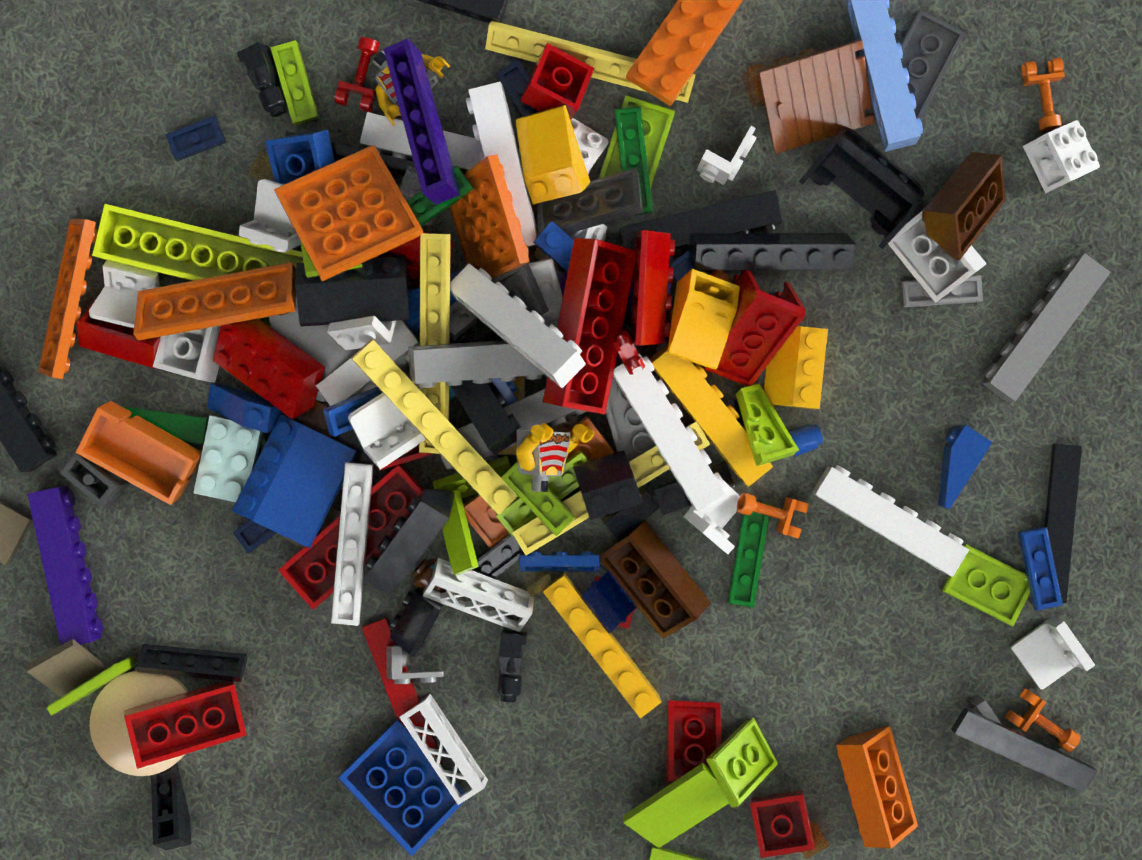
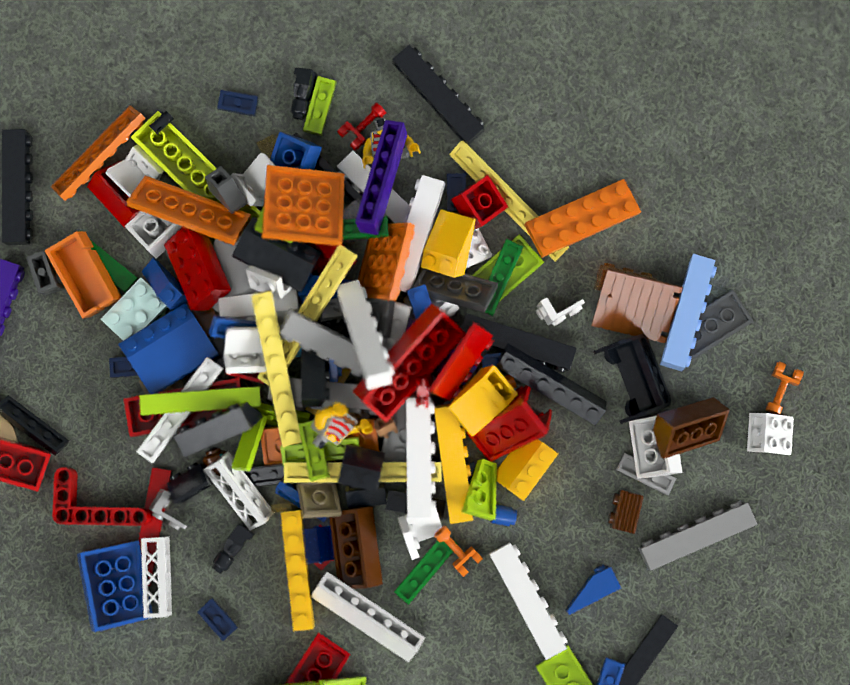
camera: 25 degrees right, 5 degrees down
(117, 215) = (161, 122): none -> black pin
(244, 250) = (225, 190): none -> dark grey slope
(324, 721) = (92, 513): none -> red beam
(366, 520) = (198, 400): none -> lime tile
(544, 754) = (217, 619): none -> dark blue plate
(578, 550) = (319, 499): none -> dark tan tile
(605, 422) = (383, 428): none -> medium nougat tile
(716, 650) = (368, 617): none -> white brick
(944, 349) = (626, 511): none -> reddish brown brick

